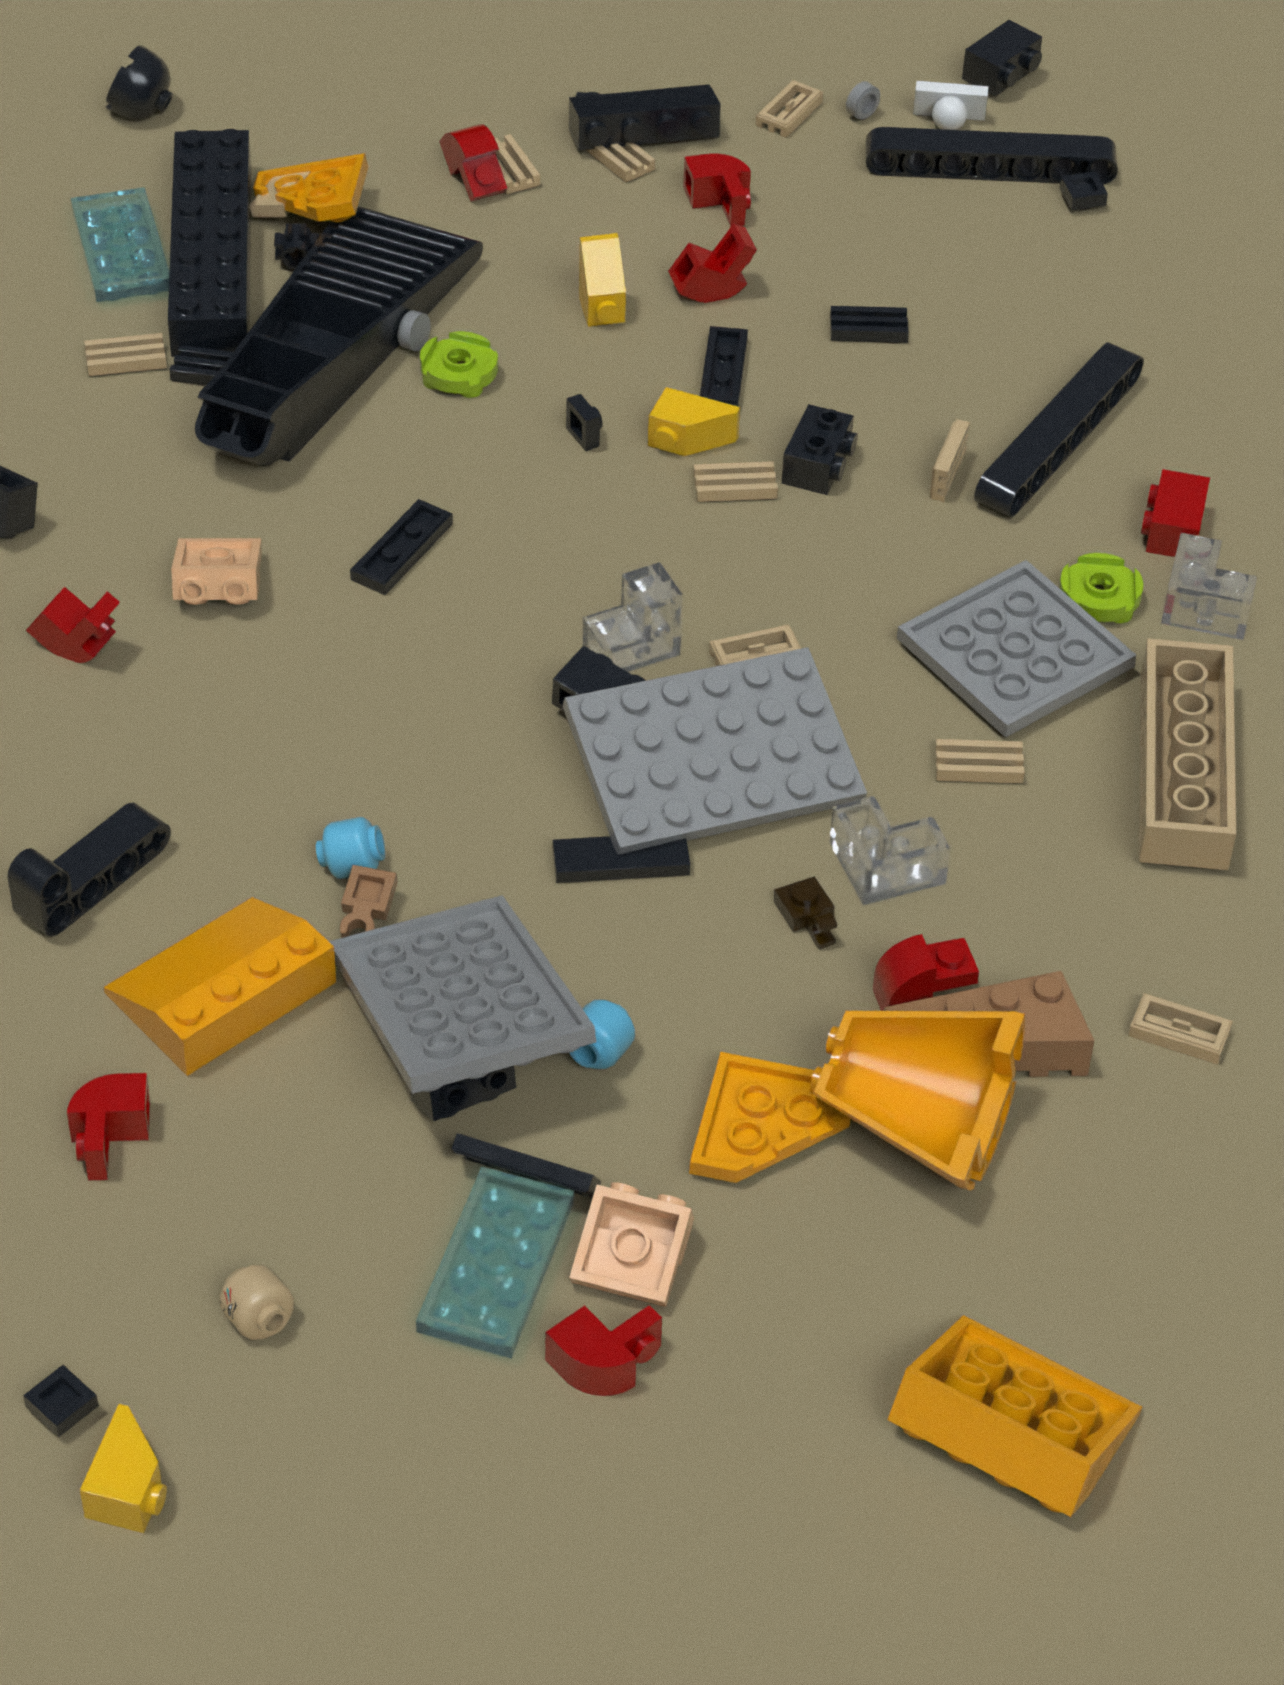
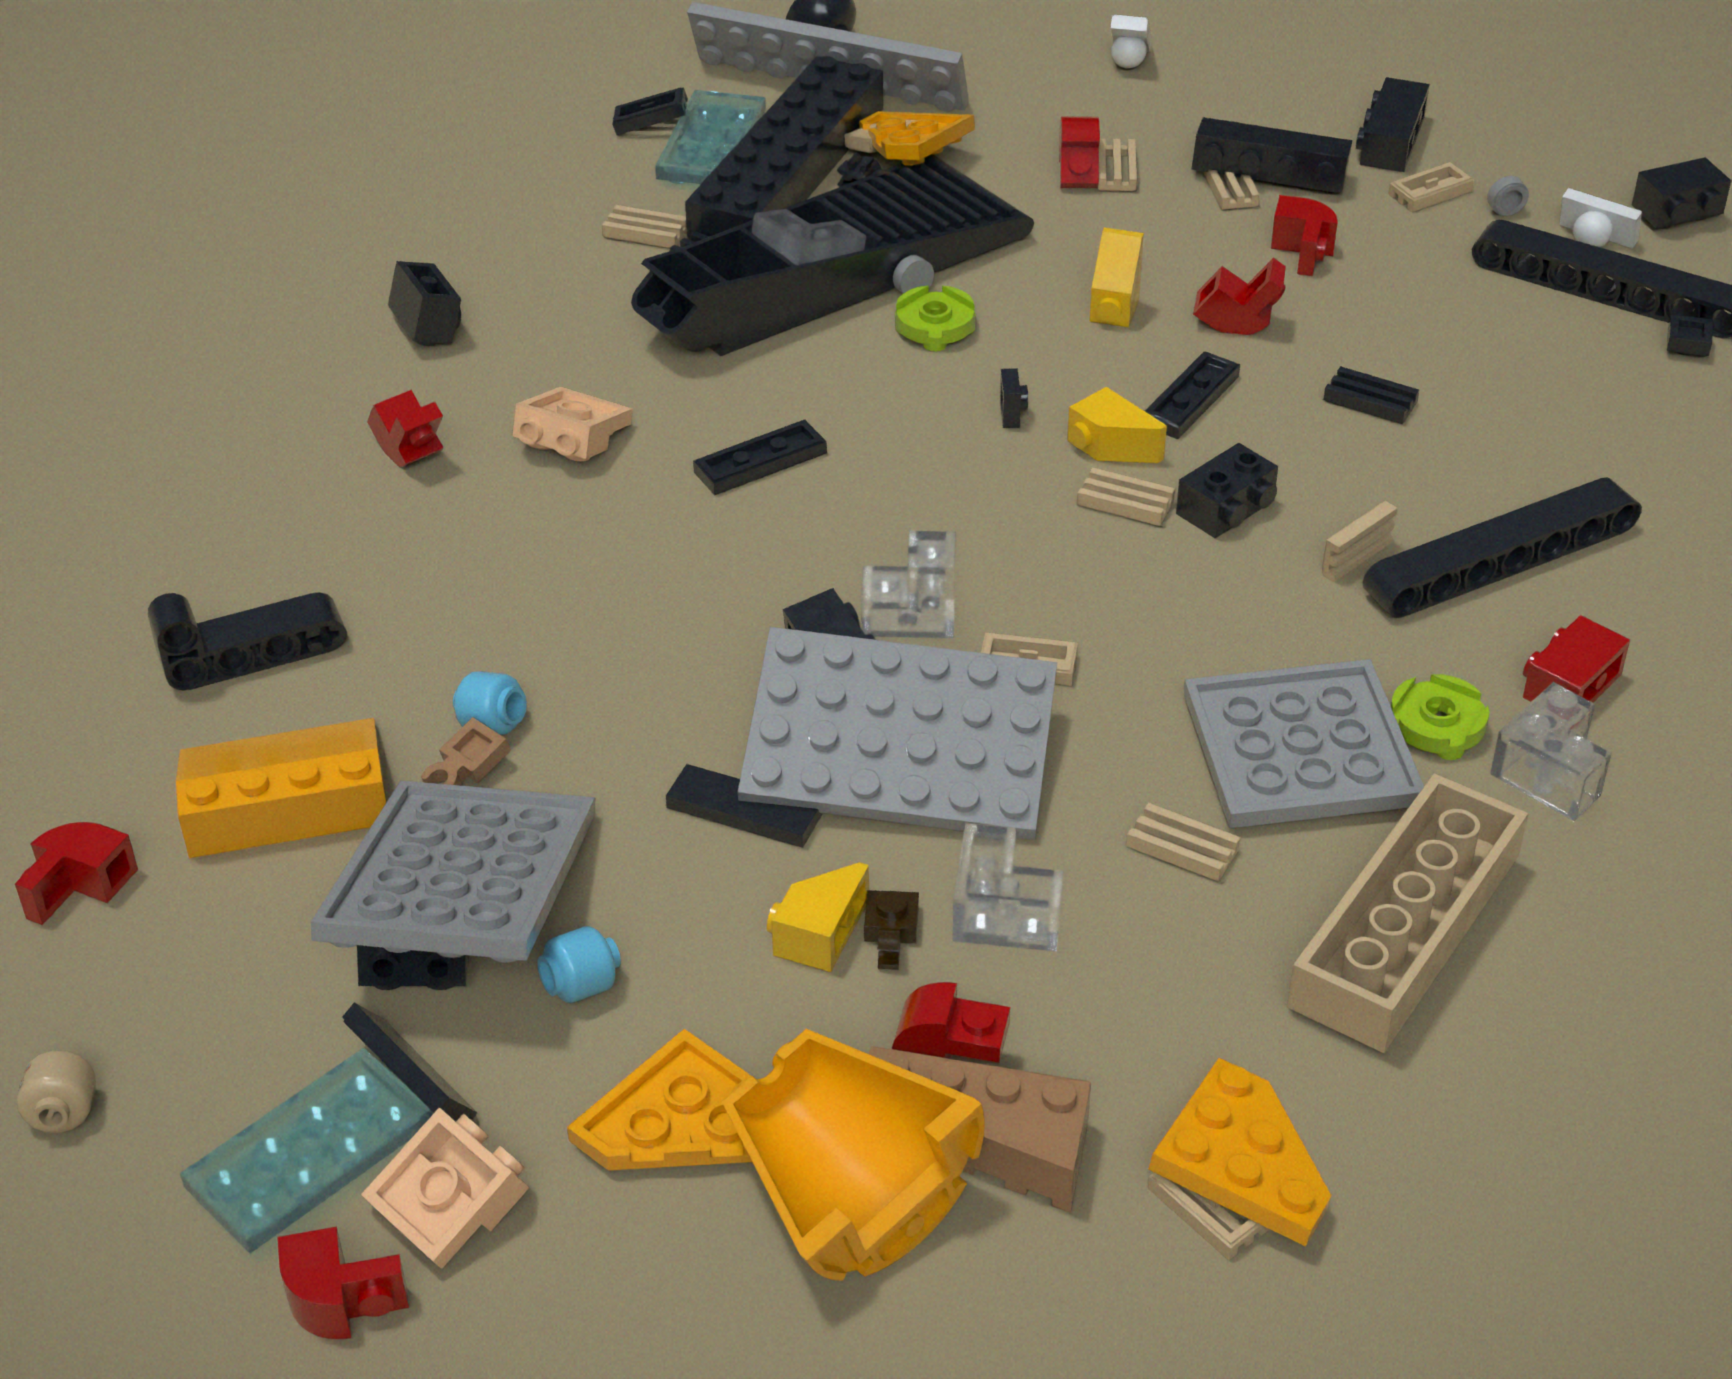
camera: 30 degrees right, 5 degrees down
(42, 233) = (650, 110): none -> black tile
(150, 127) = (789, 46): none -> light grey plate
(319, 330) = (805, 241): none -> clear brick
(441, 35) = (1130, 40): none -> white tile
(724, 54) = (1392, 124): none -> black brick
(755, 926) = (819, 916): none -> yellow slope
(1186, 983) = (1244, 1154): none -> light orange plate

